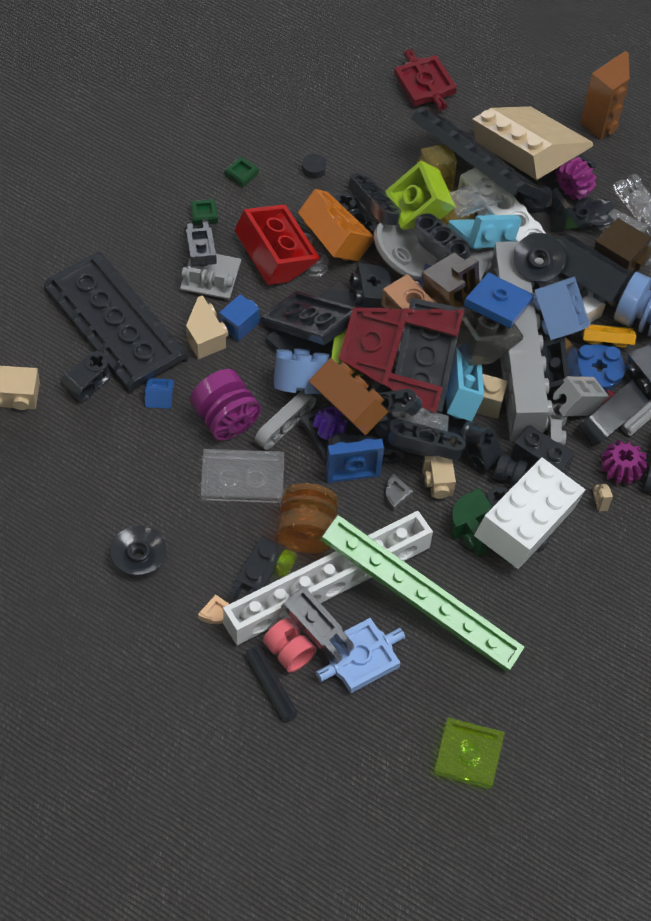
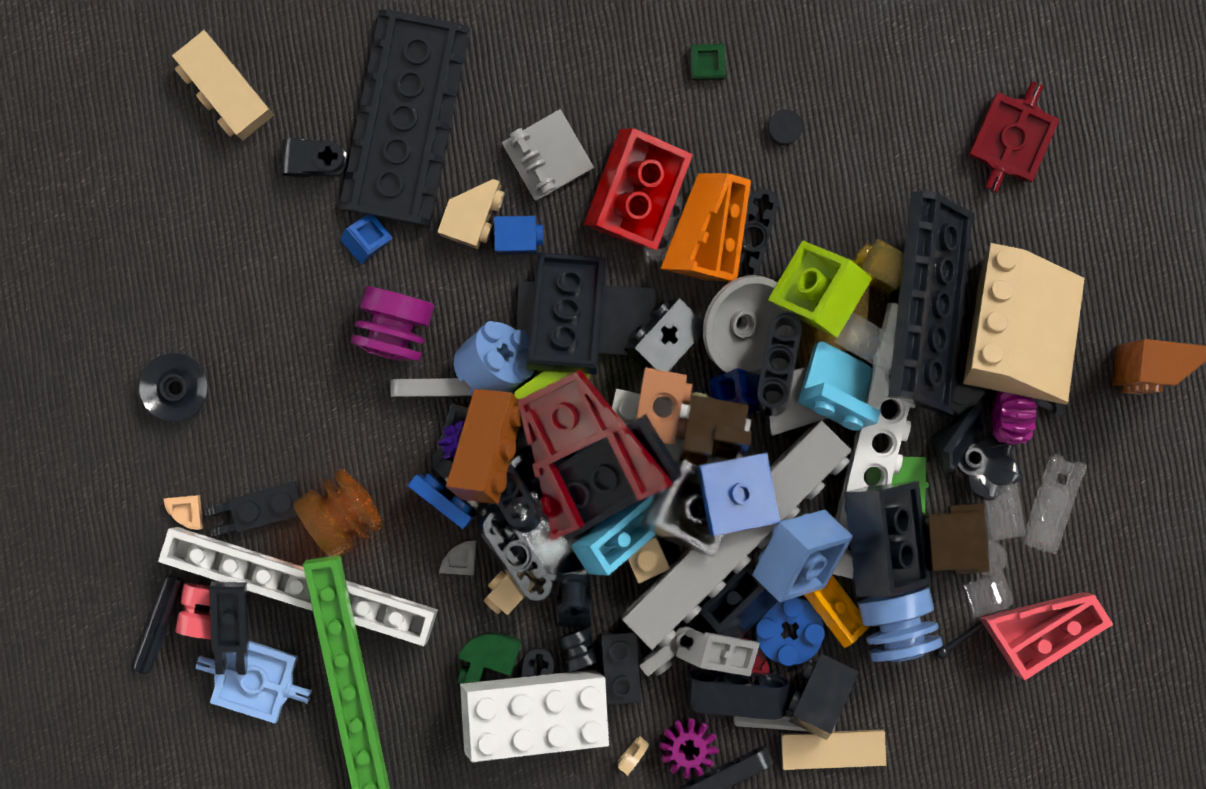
camera: 55 degrees right, 30 degrees up
(200, 244) = (565, 116): hinge -> none
(204, 210) = (619, 74): dark green tile -> none
(242, 475) = (345, 402): clear tile -> none
(285, 562) = (286, 529): clear neon green tile -> none
(374, 199) = (786, 239): black beam -> none
(539, 246) = (822, 500): black dish -> none

